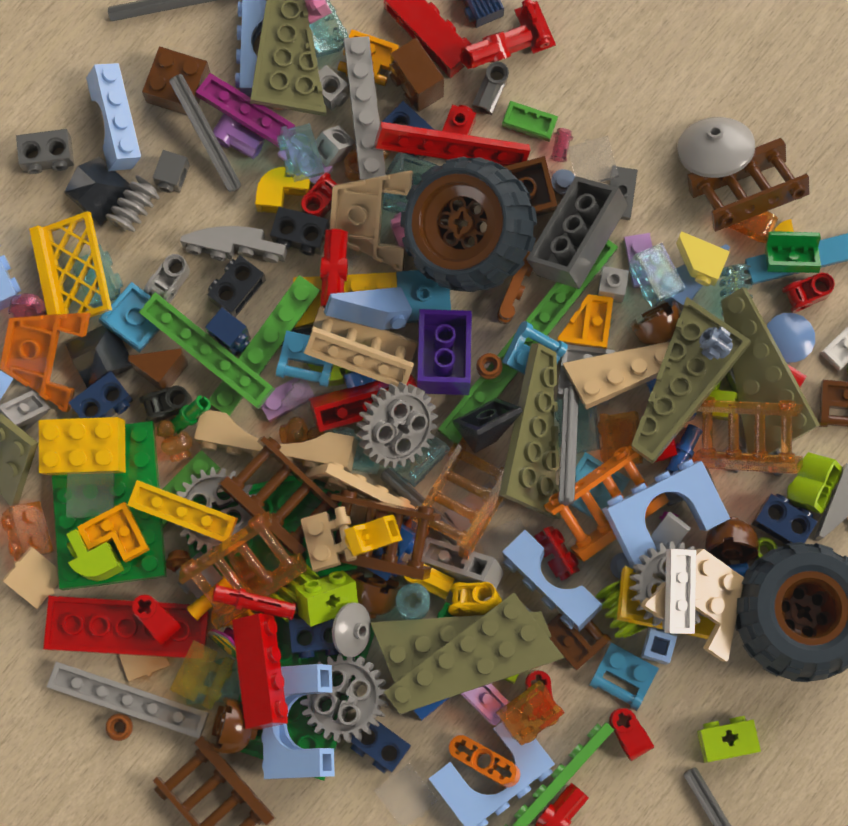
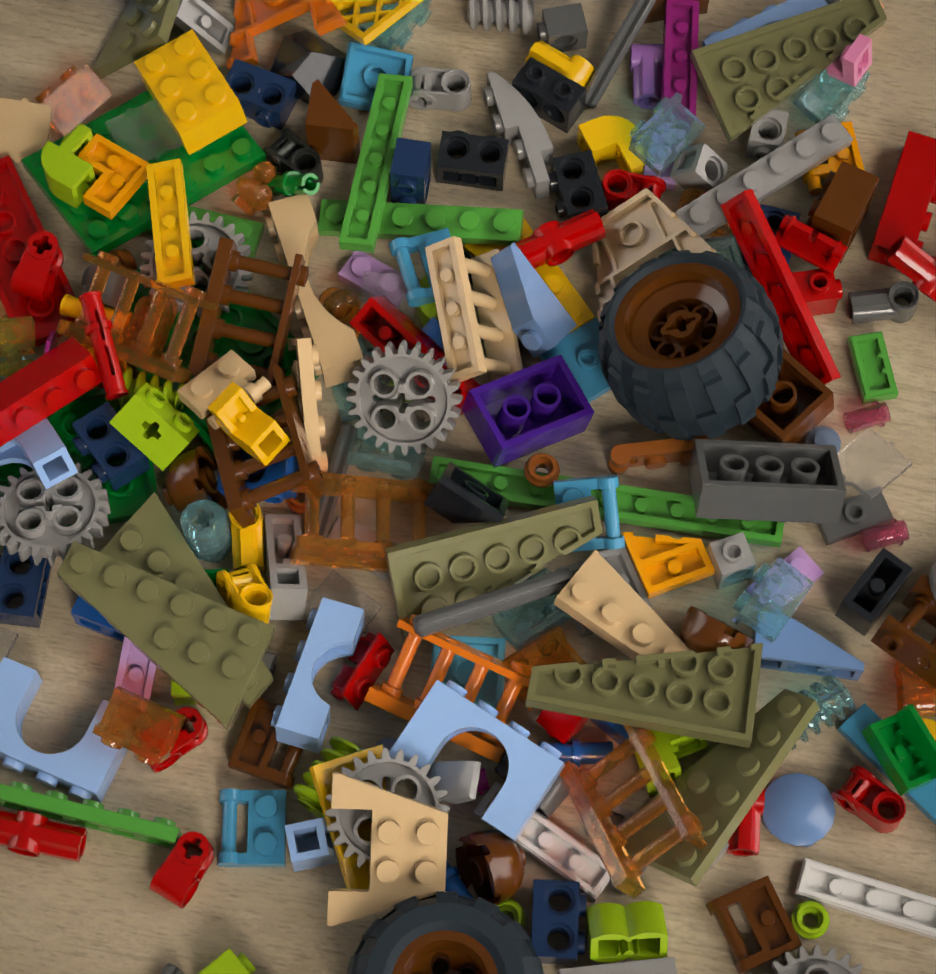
camera: 60 degrees right, 10 degrees down
(206, 188) = (574, 68): none -> yellow piece
(217, 208) = (551, 94): none -> black brick
(351, 629) = (129, 460): light grey dish -> none
(431, 108) = (810, 244): none -> red hinge
(490, 771) = (64, 724): orange beam -> none
(645, 181) = (885, 535): none -> clear pink pin
(680, 591) = (374, 806): white plate -> none
(682, 209) = (873, 592): none -> black brick
(702, 259) = (823, 641): light yellow slope -> none
(716, 343) = (718, 695): sand blue gear -> none
(738, 495) = (557, 850): none -> white tile

